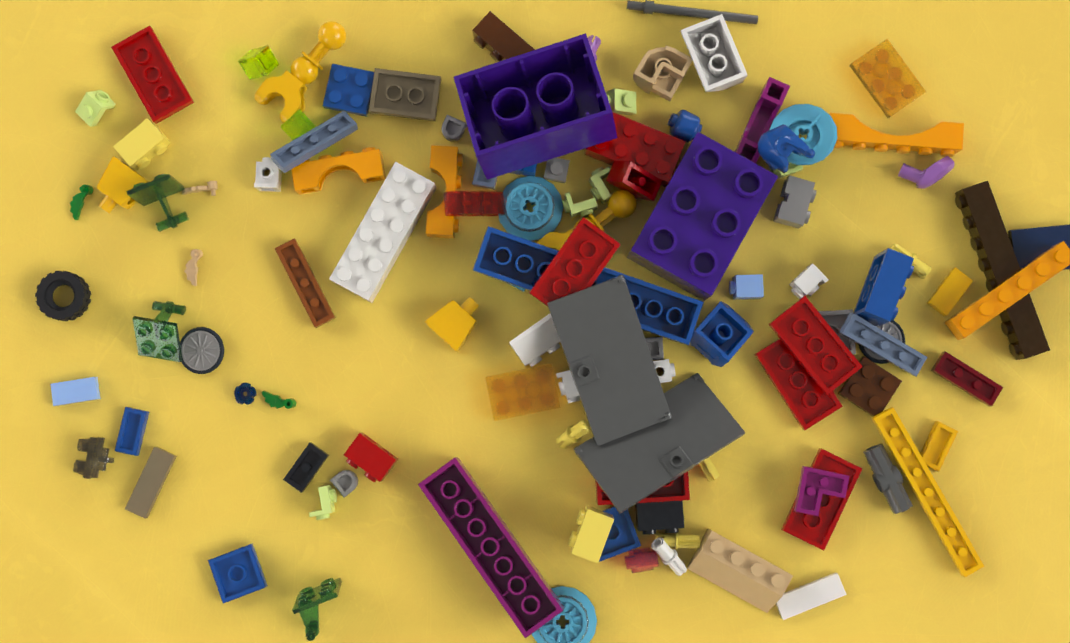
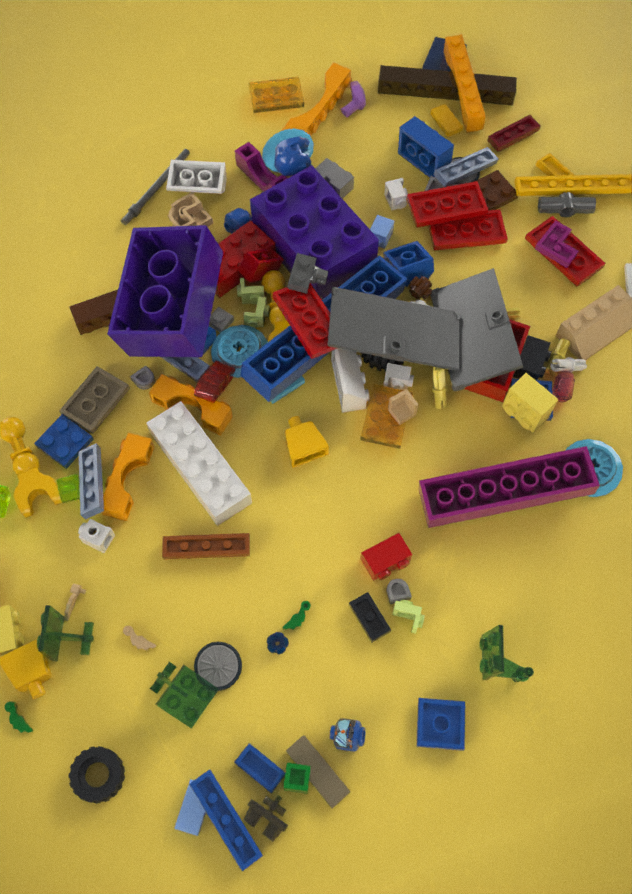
camera: 65 degrees left, 20 degrees down
(73, 423) = (226, 820): none -> blue plate
(131, 468) = (297, 778): none -> green panel
(190, 495) = (348, 734): none -> head
(531, 406) = (402, 406): none -> tan panel
(623, 239) = (305, 272): none -> dark grey hinge
(692, 361) = (420, 288): none -> reddish brown gear

